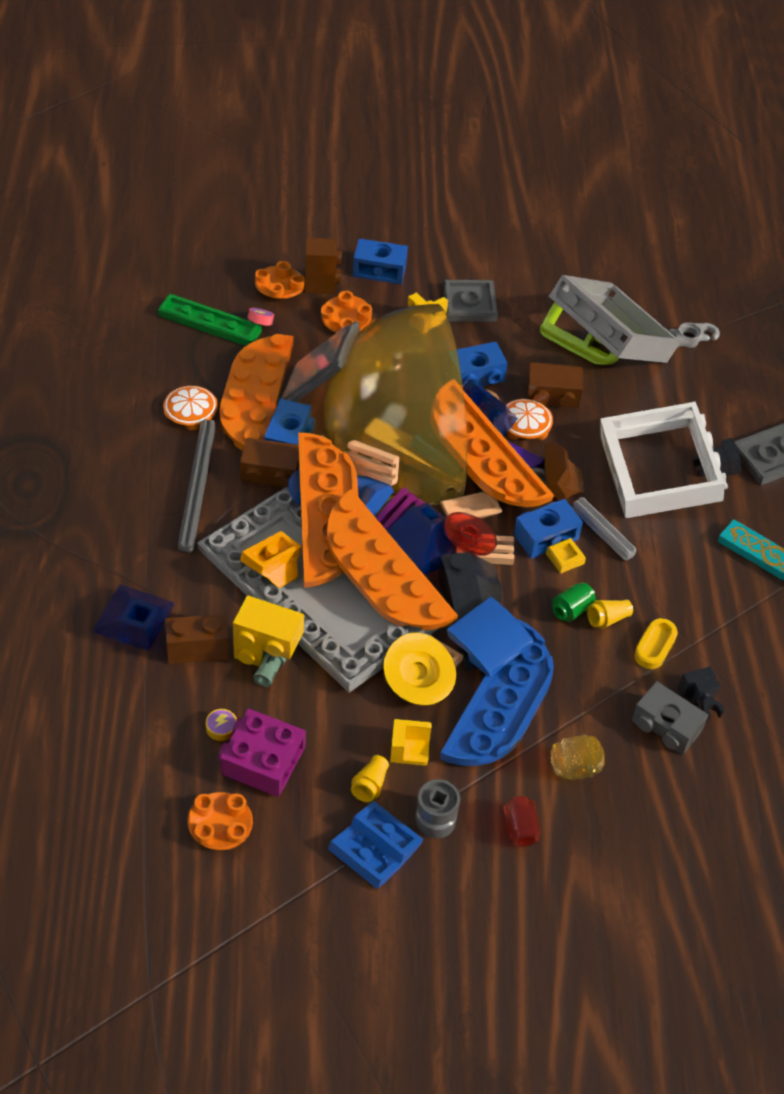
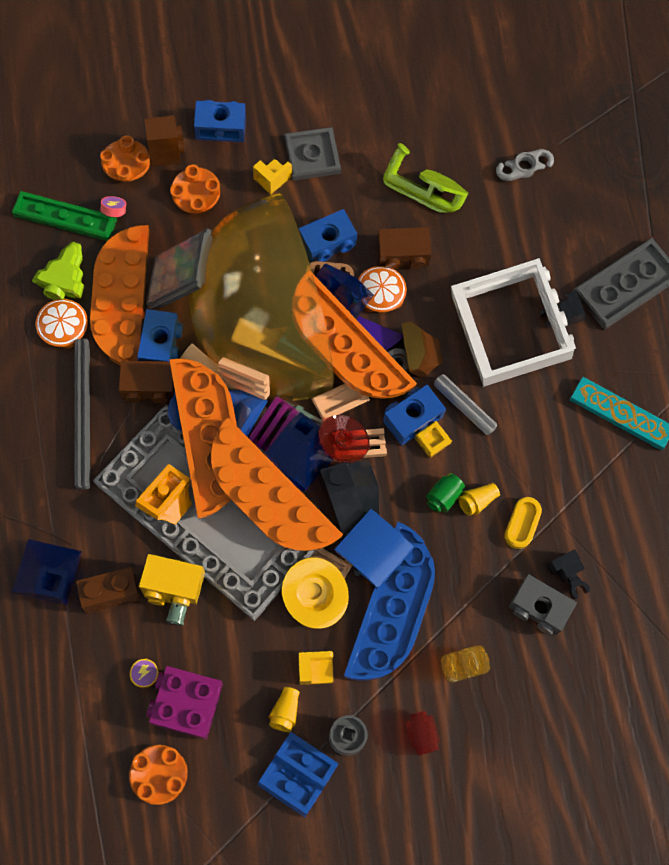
camera: 10 degrees left, 20 degrees up
(198, 366) = (62, 275): none -> lime rock
(614, 318) = (439, 182): light grey window -> none

